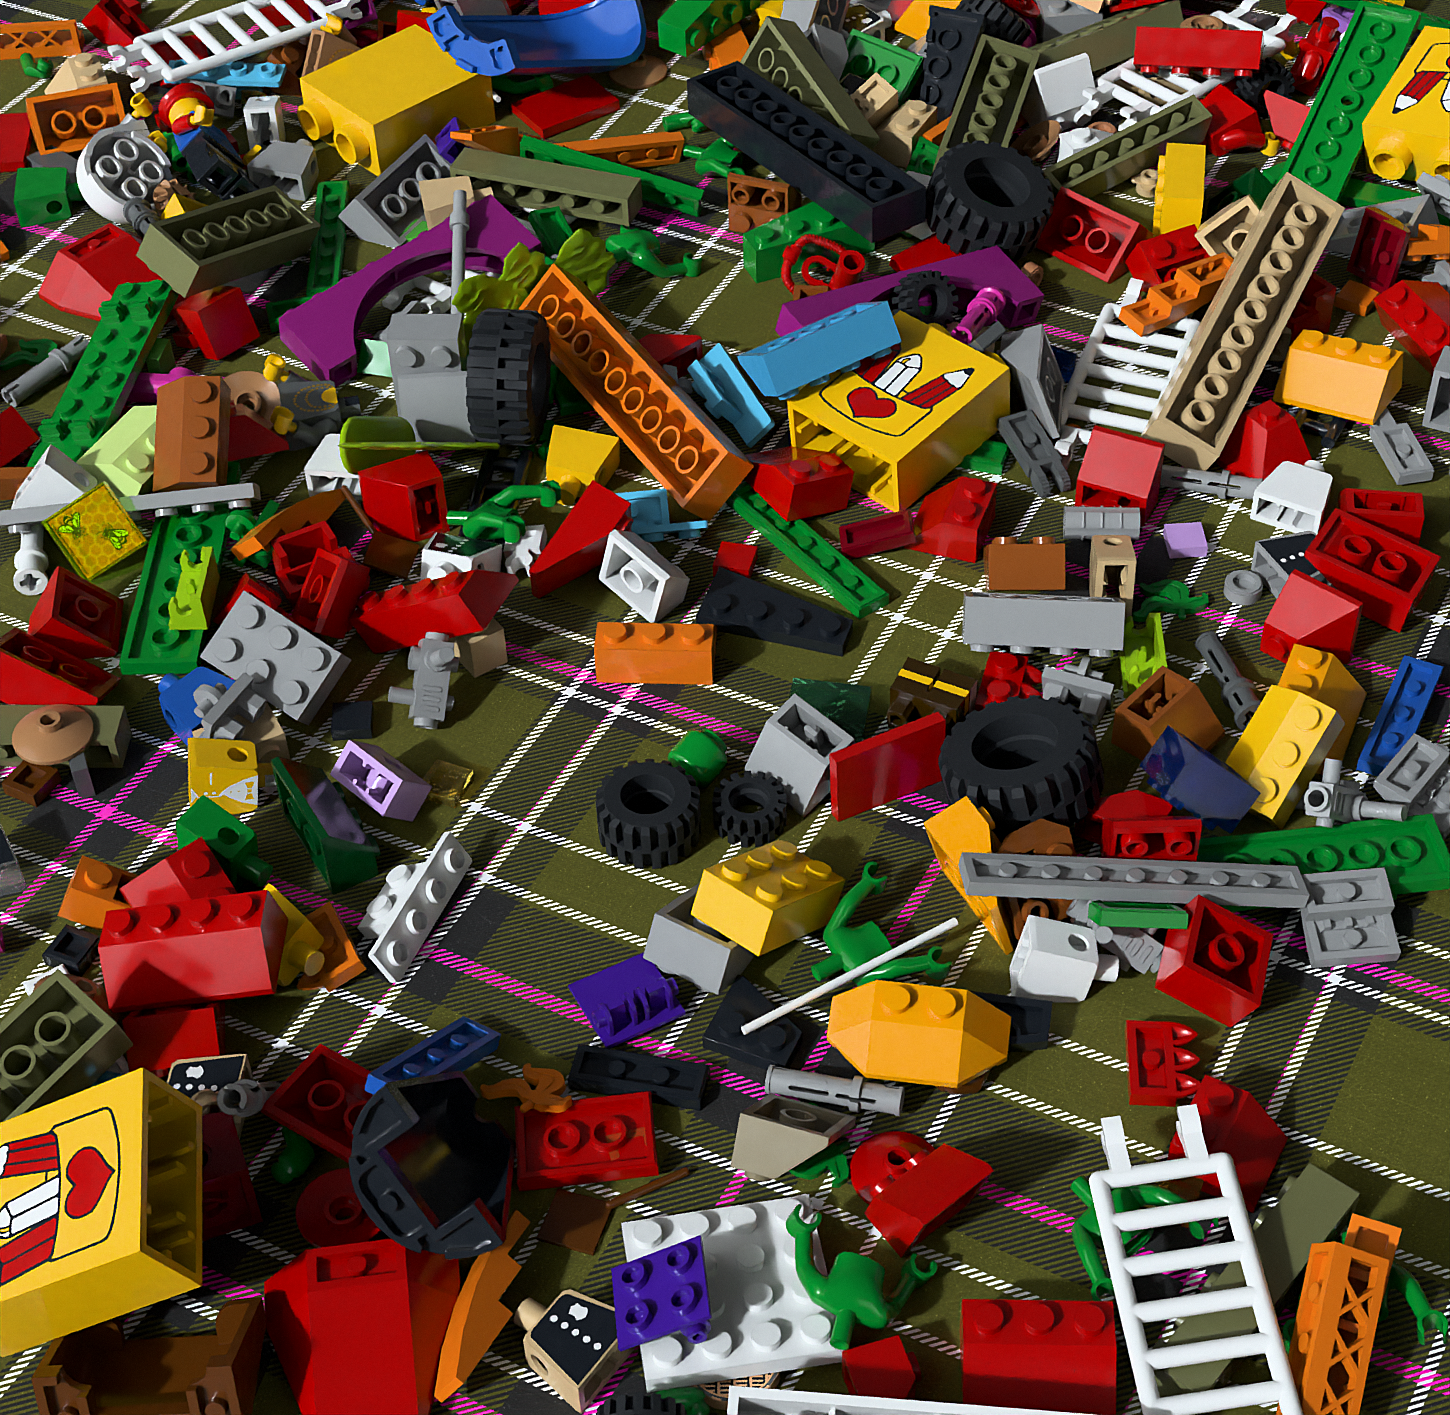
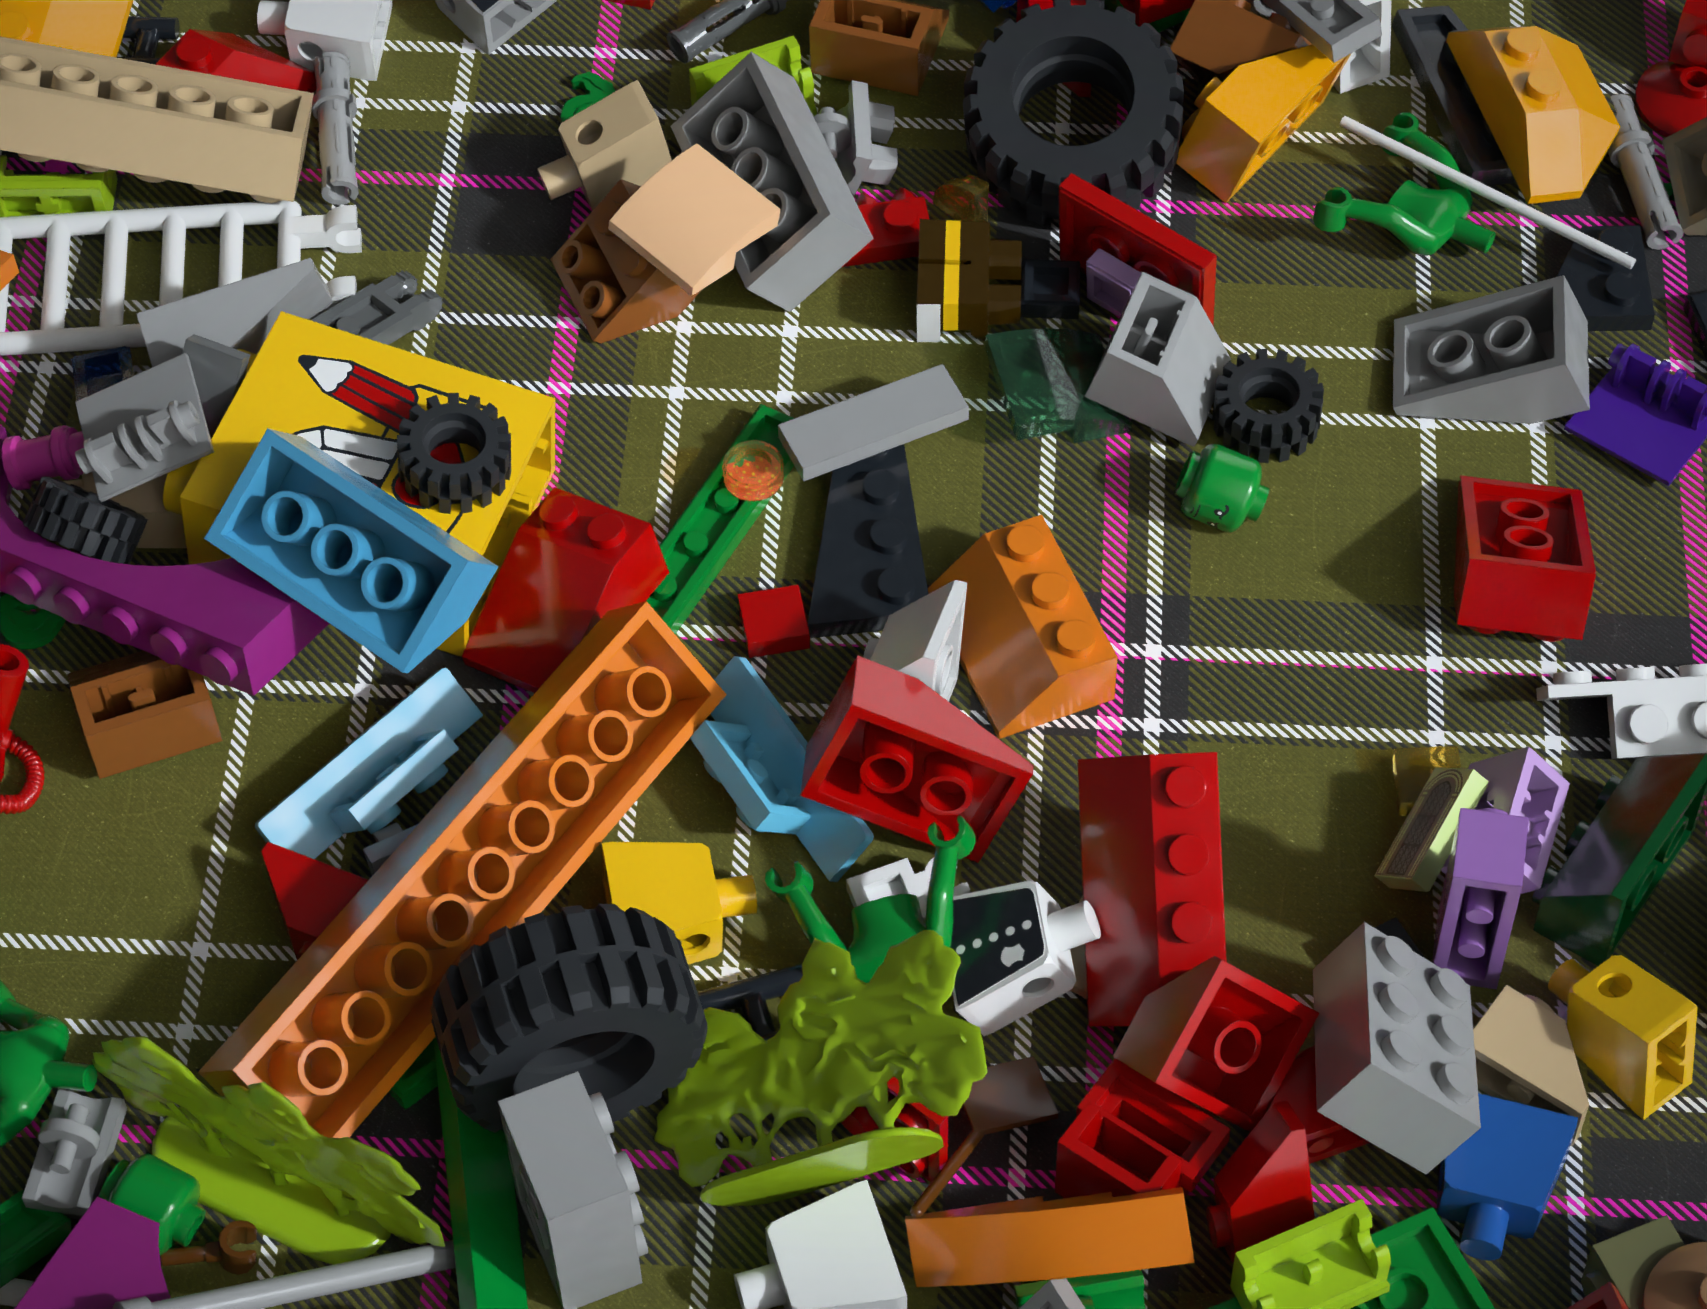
camera: 115 degrees left, 10 degrees up
(220, 706) = (1541, 1052): light grey hips -> none
(325, 713) = (1480, 894): none -> medium lavender brick
(403, 752) = (1430, 829): none -> tile
(429, 696) = (1280, 850): light grey piece -> none
(436, 406) = (660, 1187): light grey slope -> none
(561, 878) = (1522, 559): none -> red slope
(648, 837) = (1367, 455): black tyre -> none
(767, 896) = (1442, 286): yellow brick -> none
(833, 619) = (873, 422): none -> light grey tile
(835, 569) = (753, 470): none -> clear yellow tile
(867, 388) = (454, 424): none -> black tyre
(877, 534) = (640, 456): dark red tile -> none
(944, 310) = (142, 428): none -> light grey hinge
(956, 519) = (576, 360): red slope -> none
(1007, 556) = (694, 219): none -> light nougat slope
(1085, 521) = (488, 212): light grey axle -> none
(1120, 472) = (398, 197): slope -> none
(1185, 540) = (470, 124): lavender tile -> none
(1243, 587) = (541, 45): light grey tile -> none

